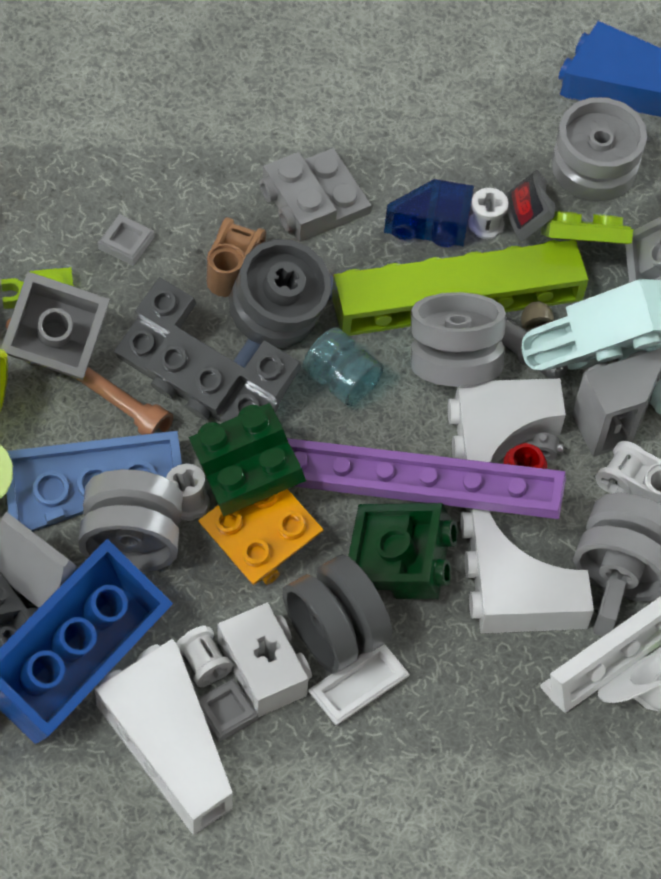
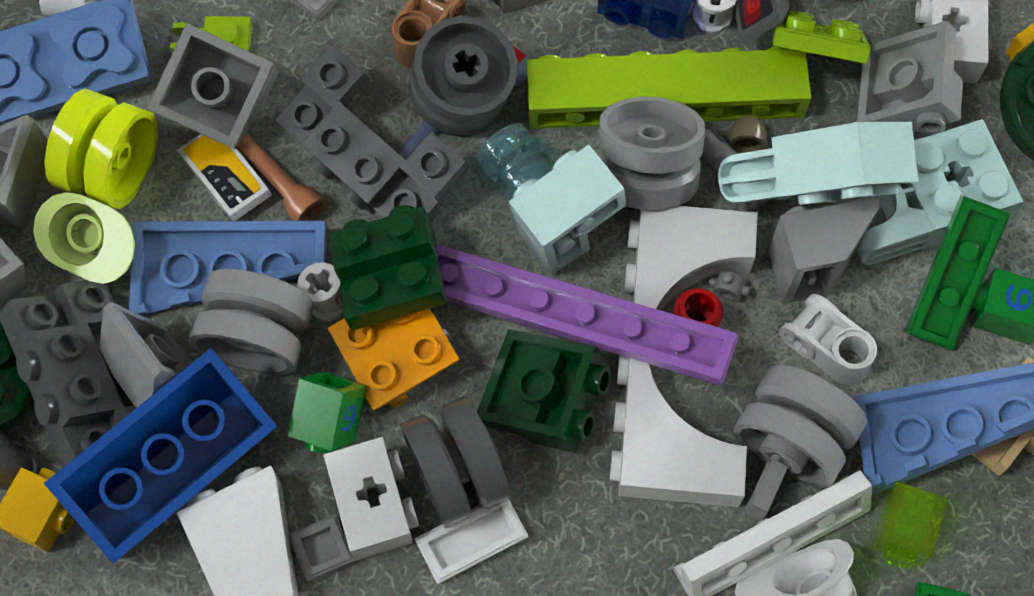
camera: 15 degrees right, 10 degrees up
(75, 403) = (224, 175): none -> slope
(204, 656) = (307, 484): white bush -> none
(212, 590) = (326, 411): none -> green brick
(392, 391) = (566, 206): none -> light aqua brick

